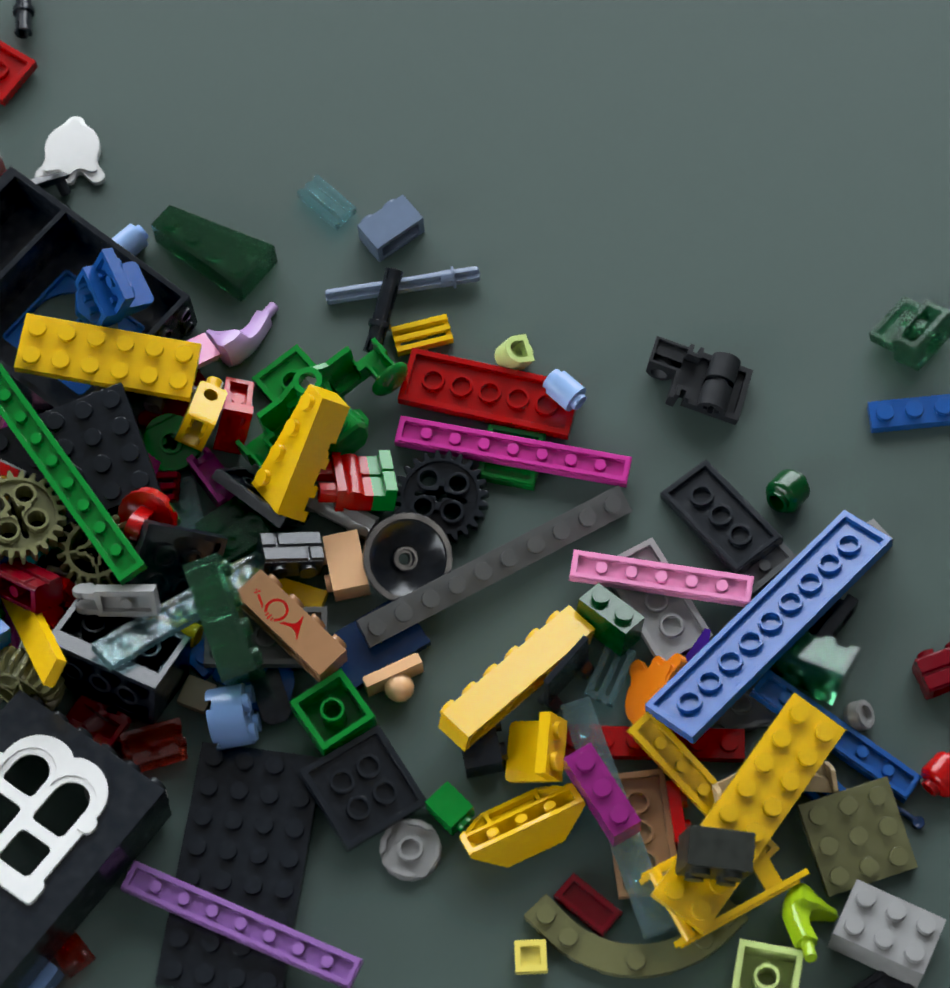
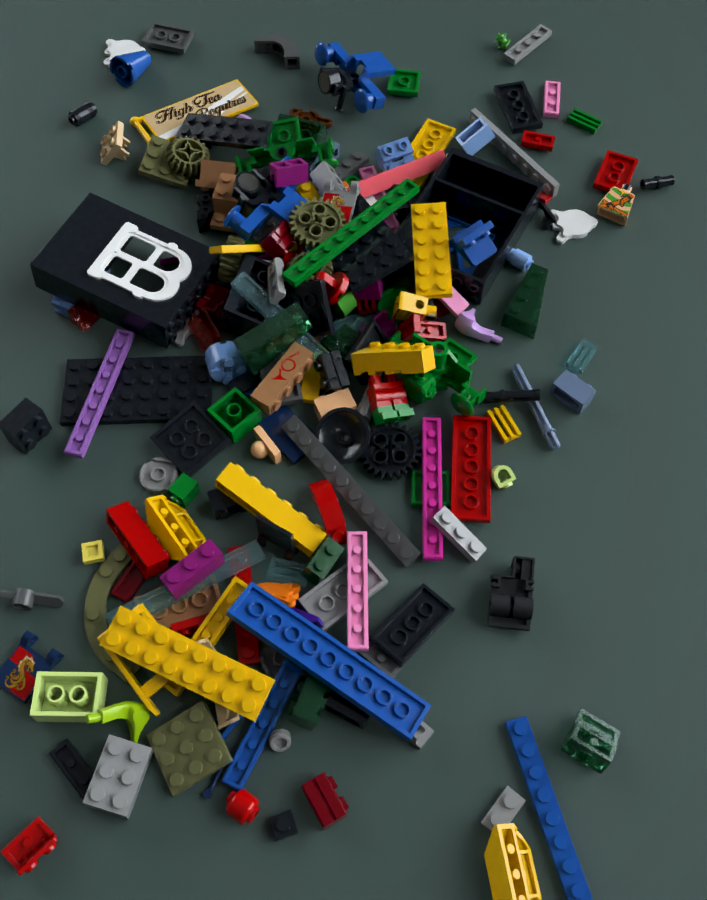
camera: 75 degrees right, 5 degrees down
(58, 77) = (616, 204): none -> torso
(524, 595) = (329, 510): none -> red arch
(527, 881) = (137, 539): none -> red brick
(536, 750) = (225, 531): yellow bracket -> none
(565, 390) = (479, 507): light blue brick -> none
(597, 430) = (458, 534): none -> light grey plate
(715, 855) = (138, 634): pearl dark grey brick -> none
(787, 491) = (441, 666): dark green head -> none

